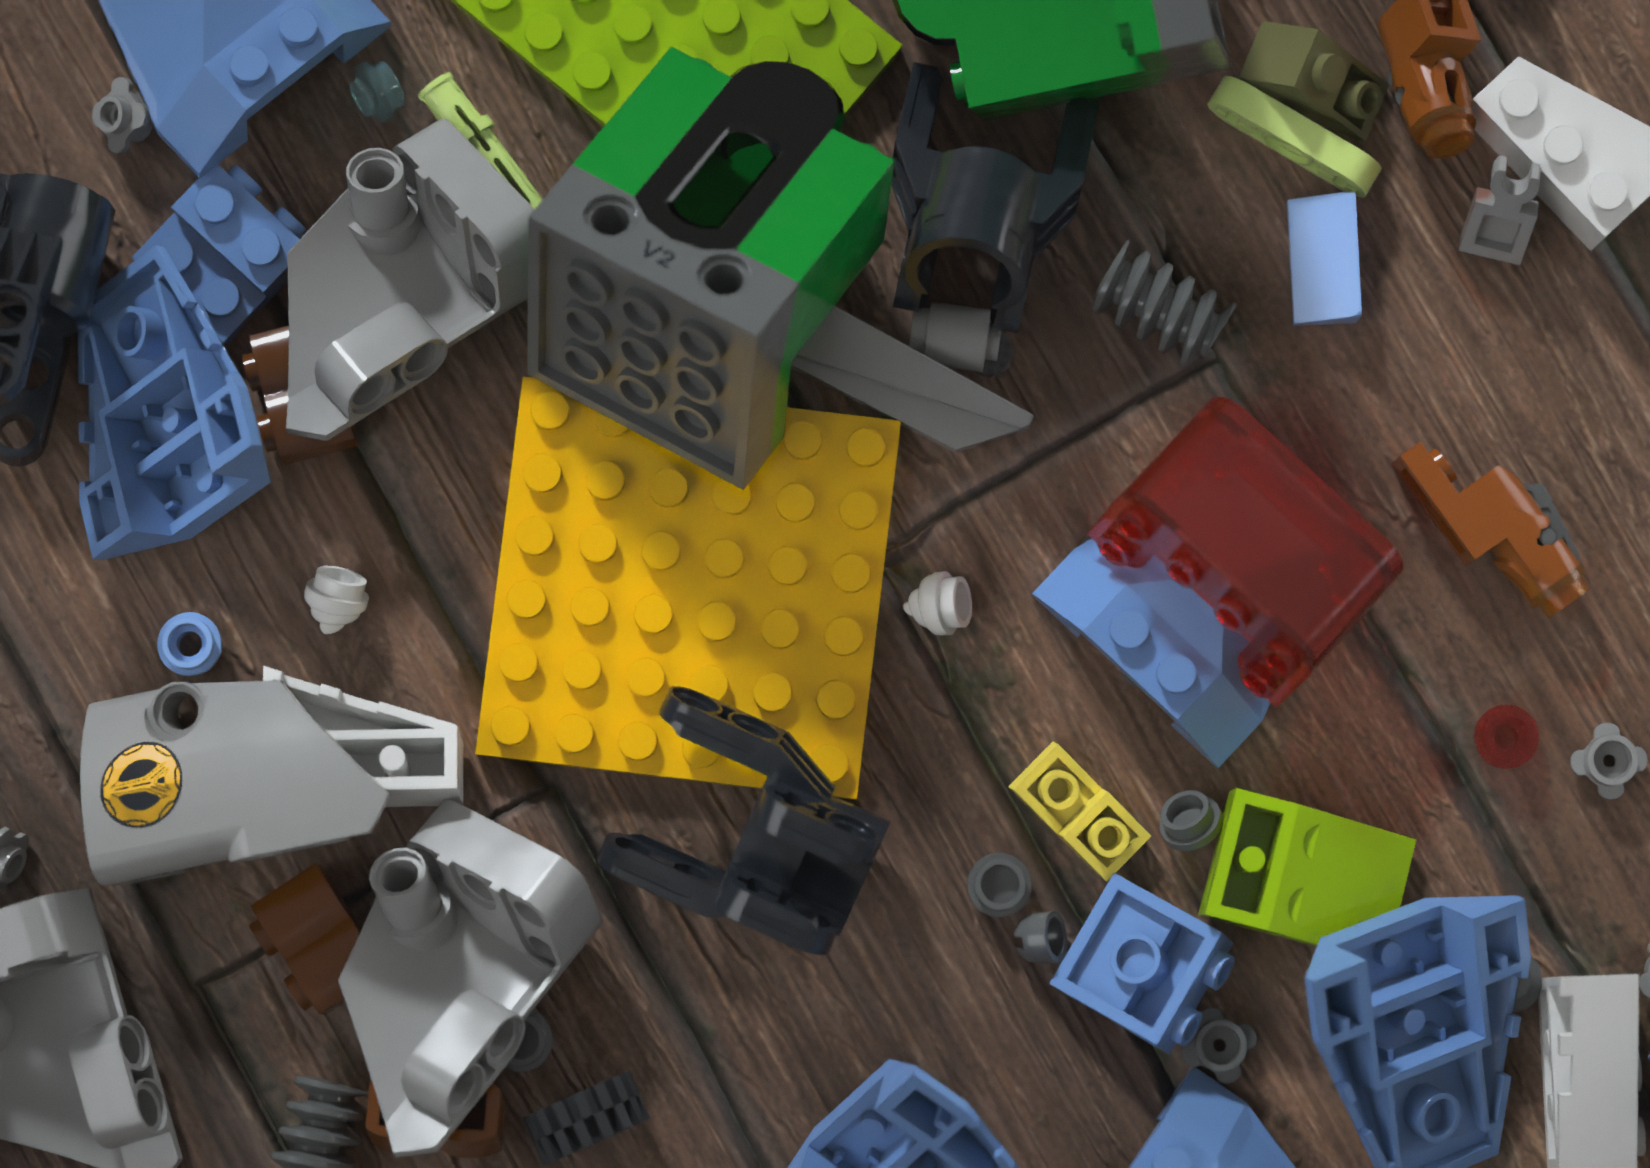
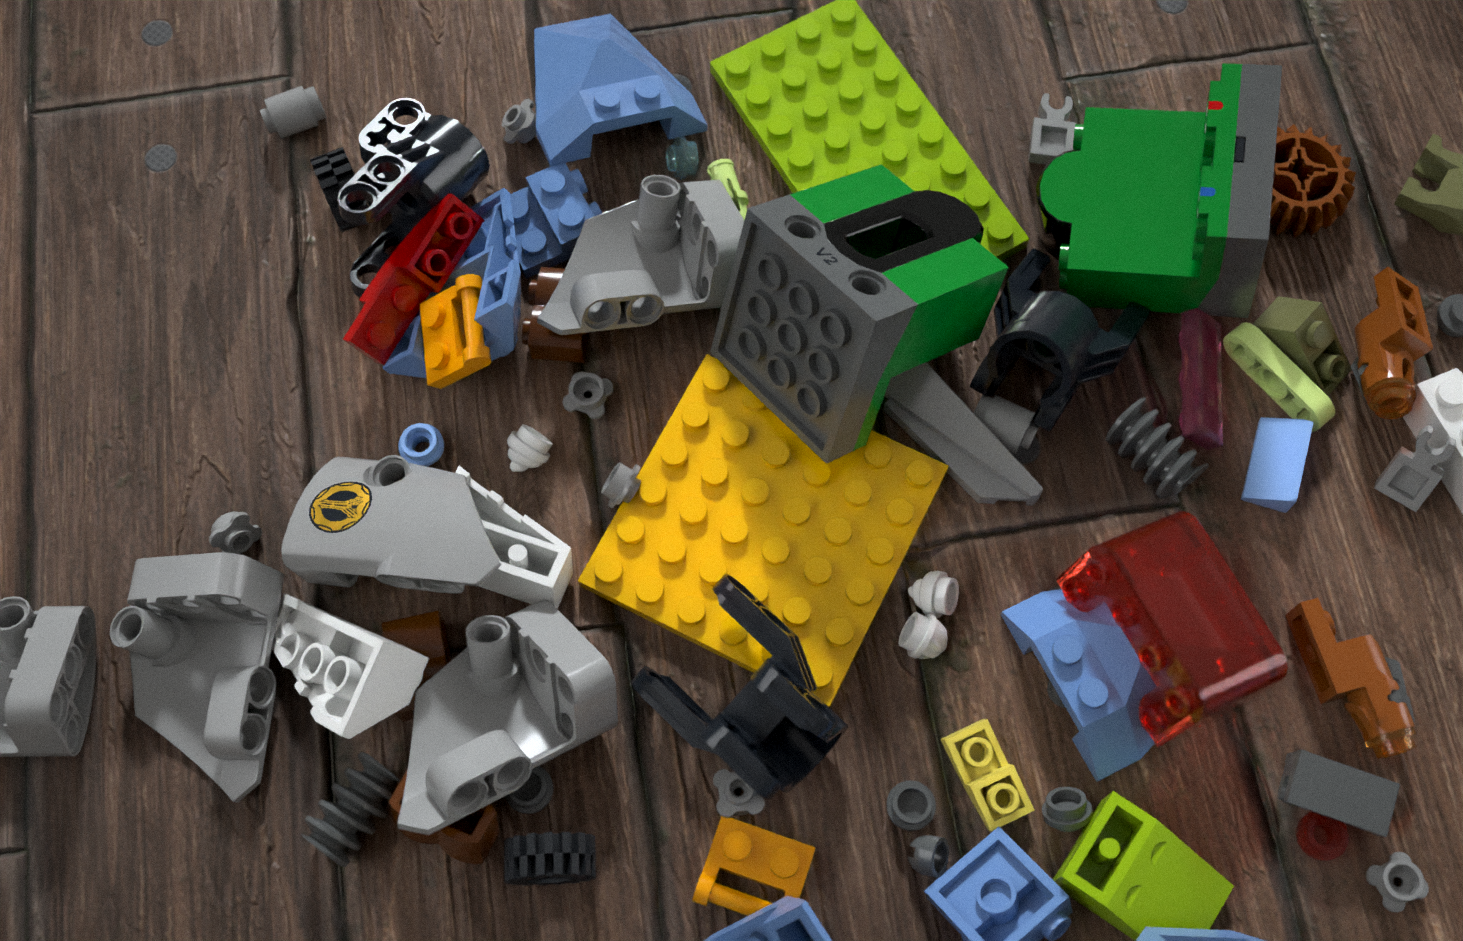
camera: 25 degrees right, 15 degrees down
(72, 425) = (409, 275): none -> red slope
(173, 484) = (451, 335): none -> light orange plate
(236, 984) = (344, 668): none -> white wedge
(371, 478) = (588, 382): none -> light grey plate
(481, 604) = (621, 484): none -> light grey plate
(777, 965) = (731, 804): none -> light grey plate
(833, 1016) = (756, 857): none -> light orange plate
(943, 666) = (923, 636): none -> white plate
(1194, 176) = (1201, 379): none -> clear pink plate
(1509, 681) = (1338, 792): none -> dark grey hinge

